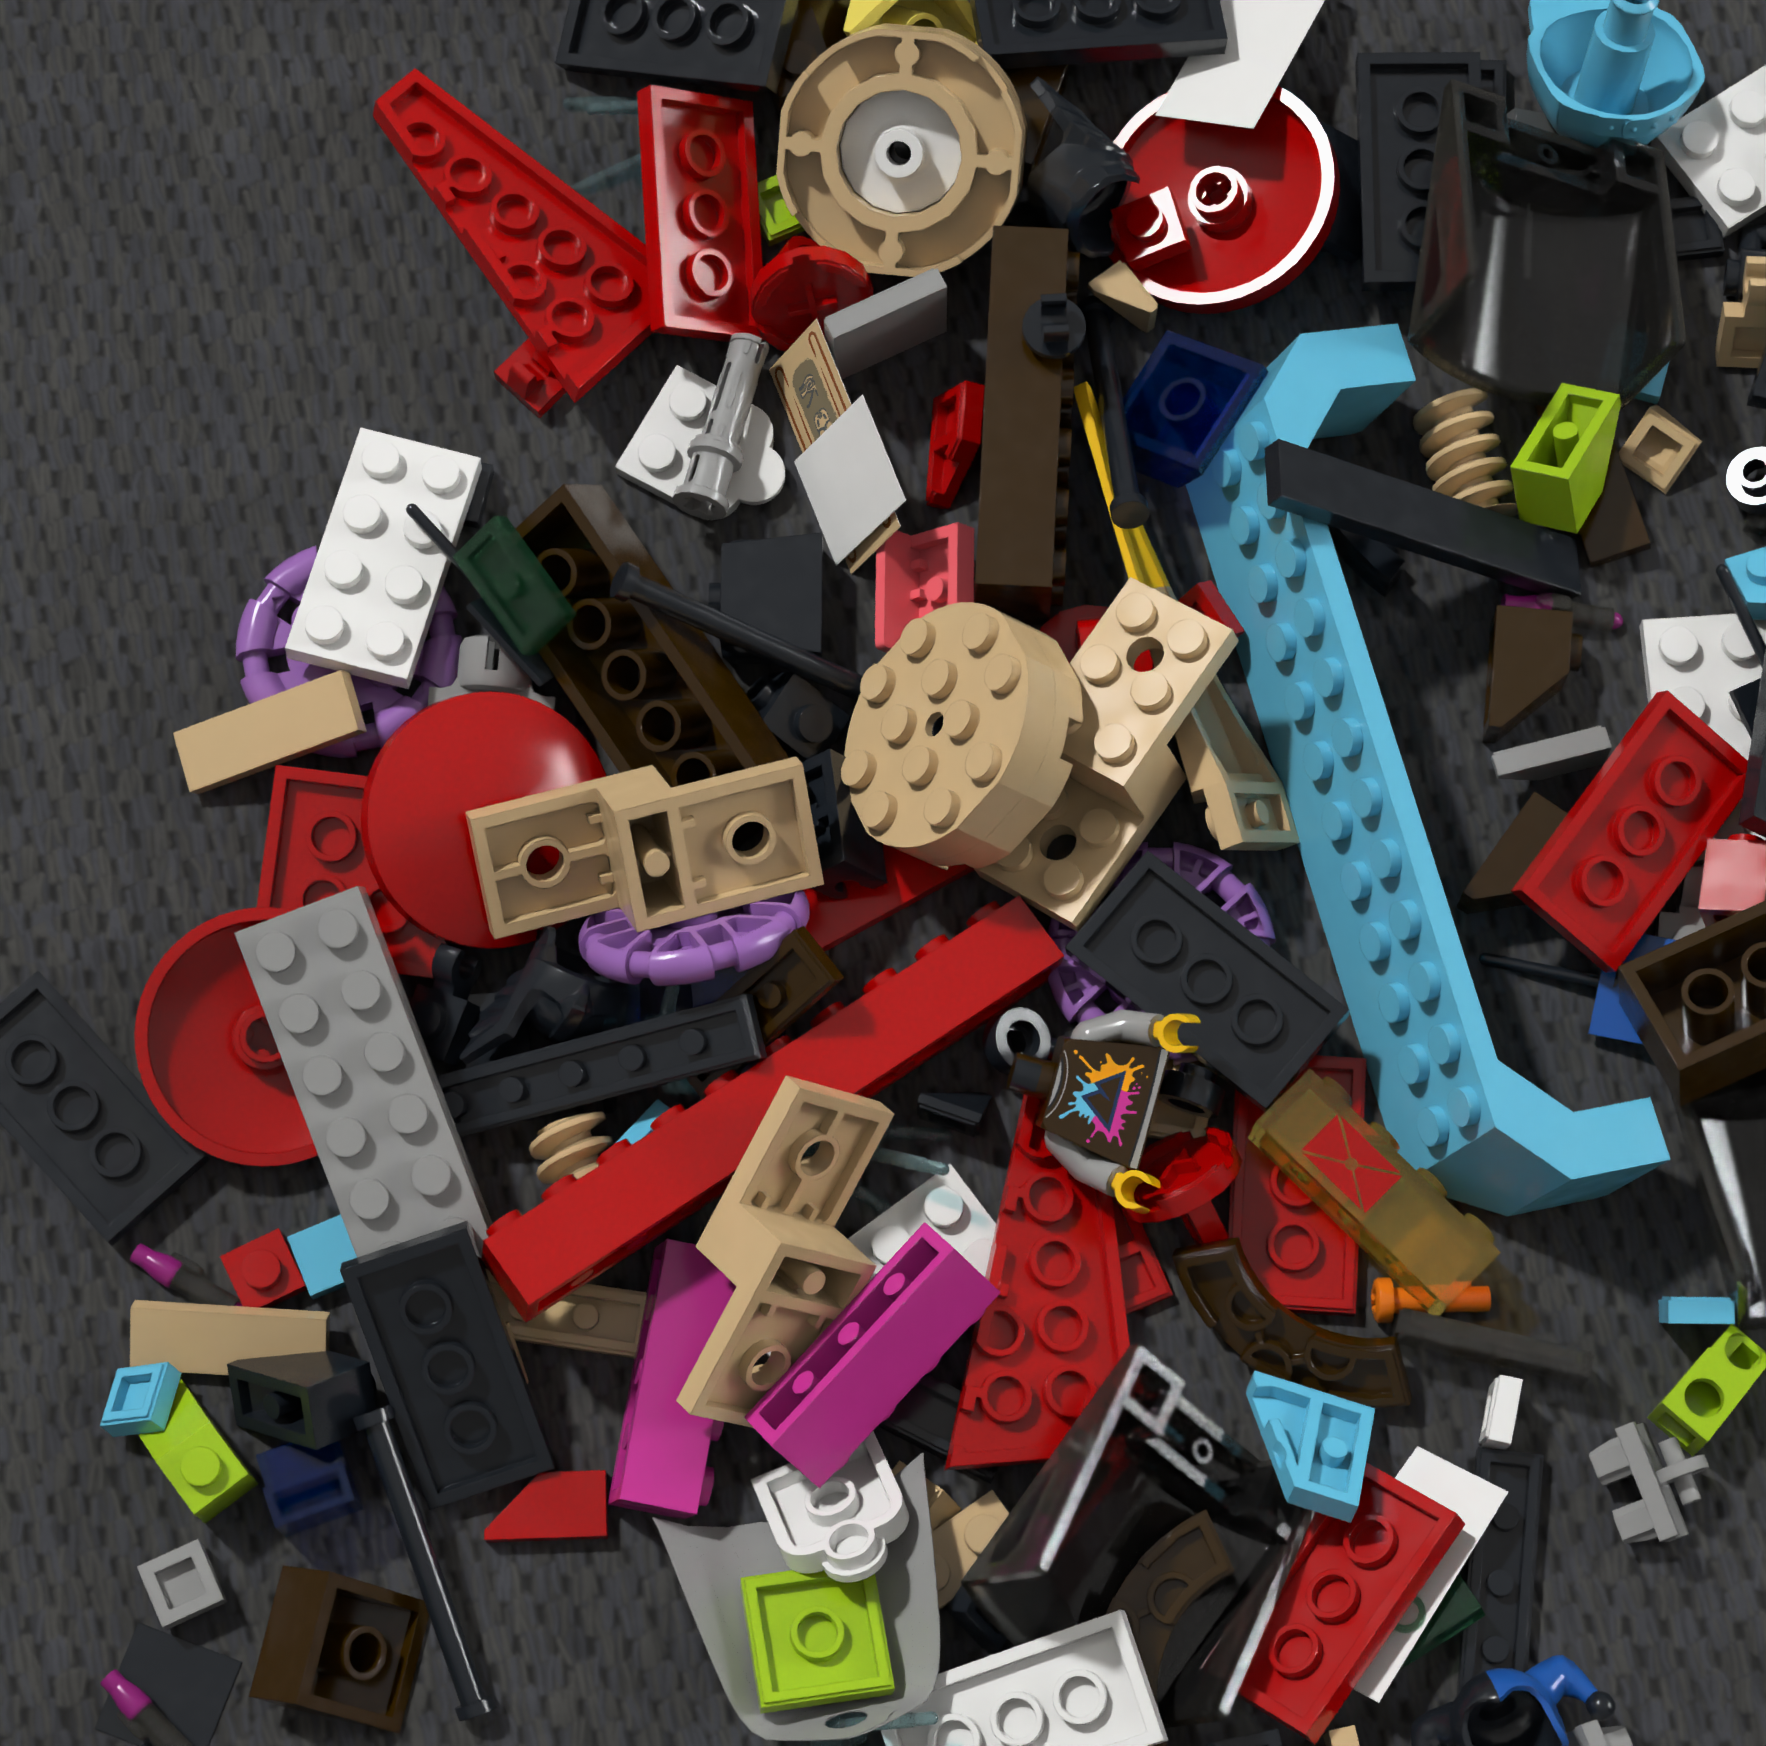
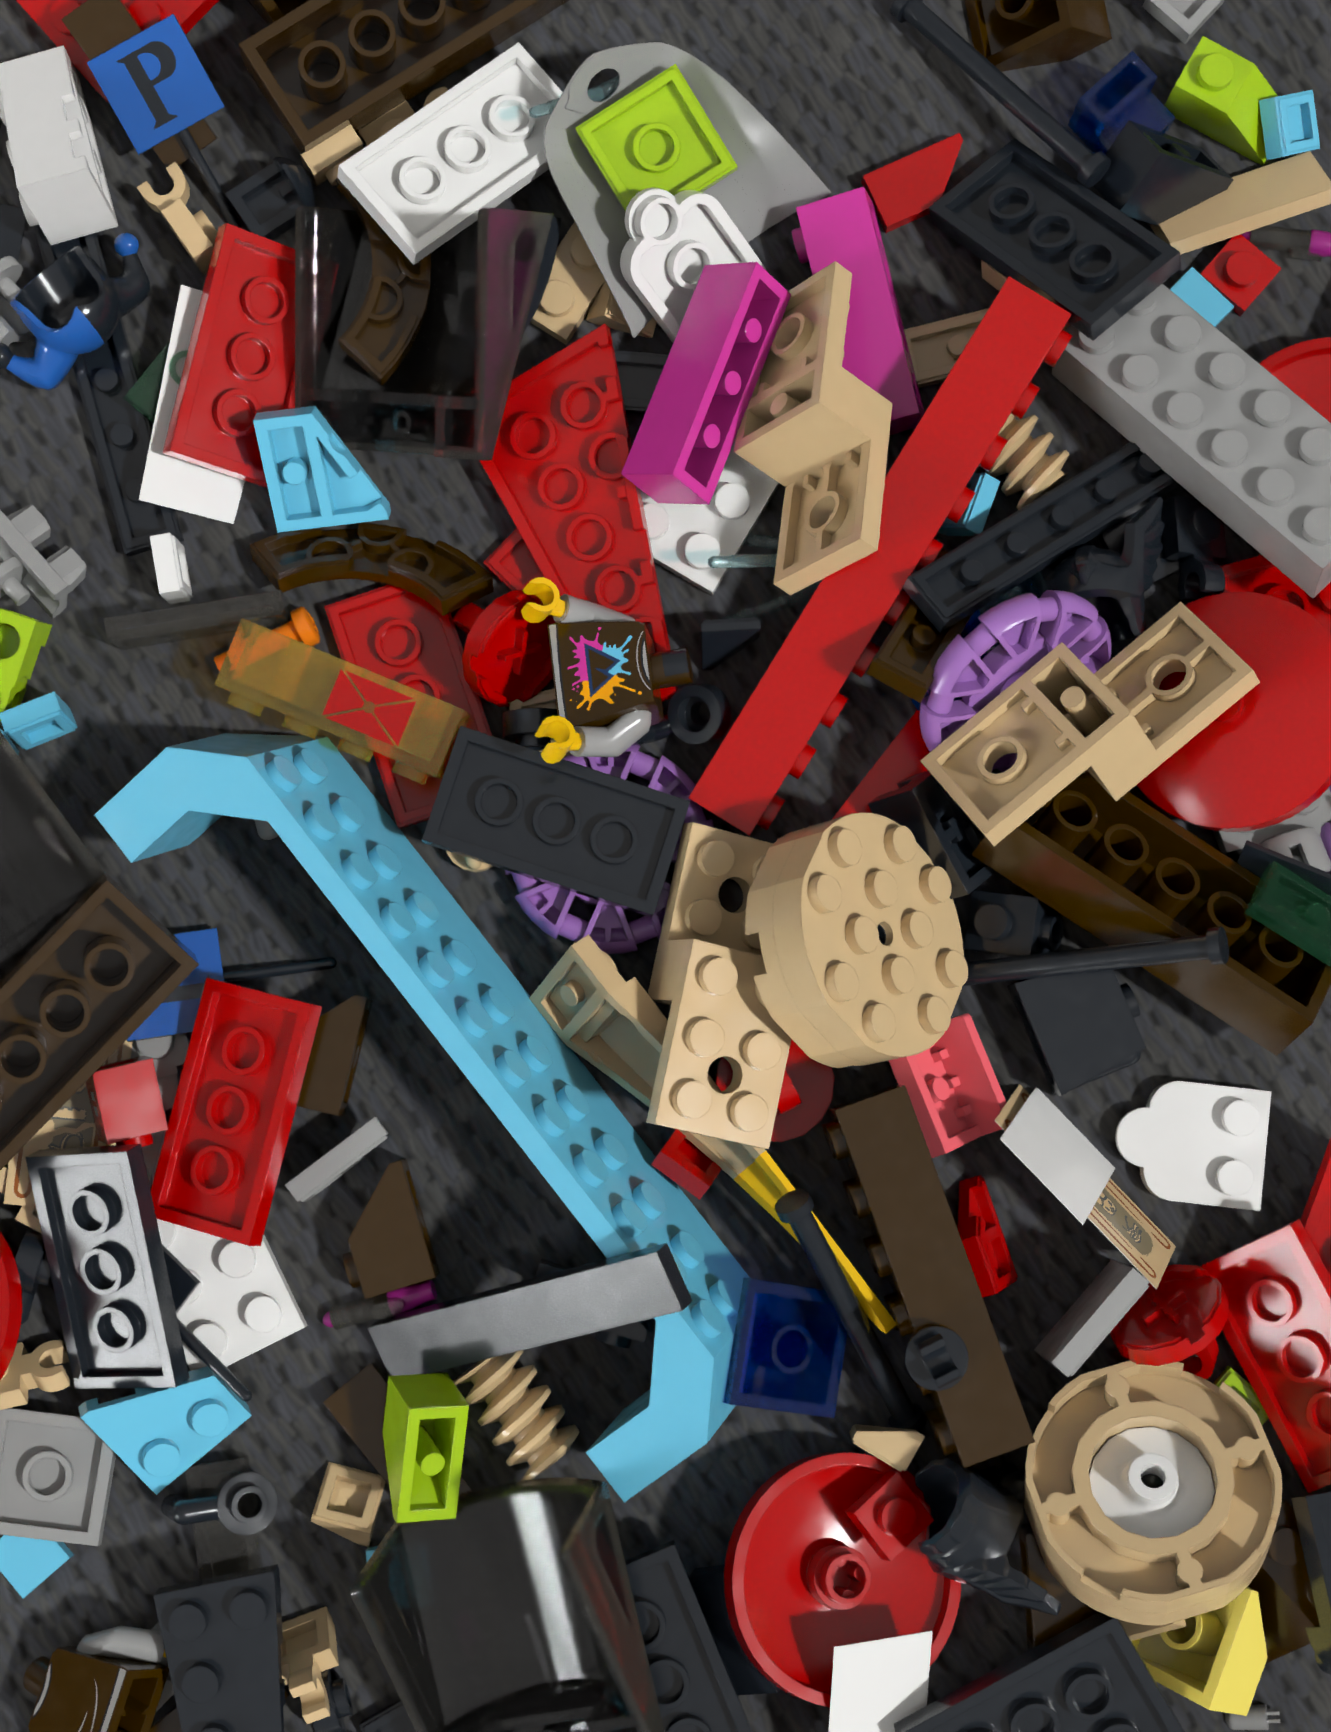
camera: 155 degrees right, 10 degrees up
(717, 450) = (1189, 1136): light grey pin -> none

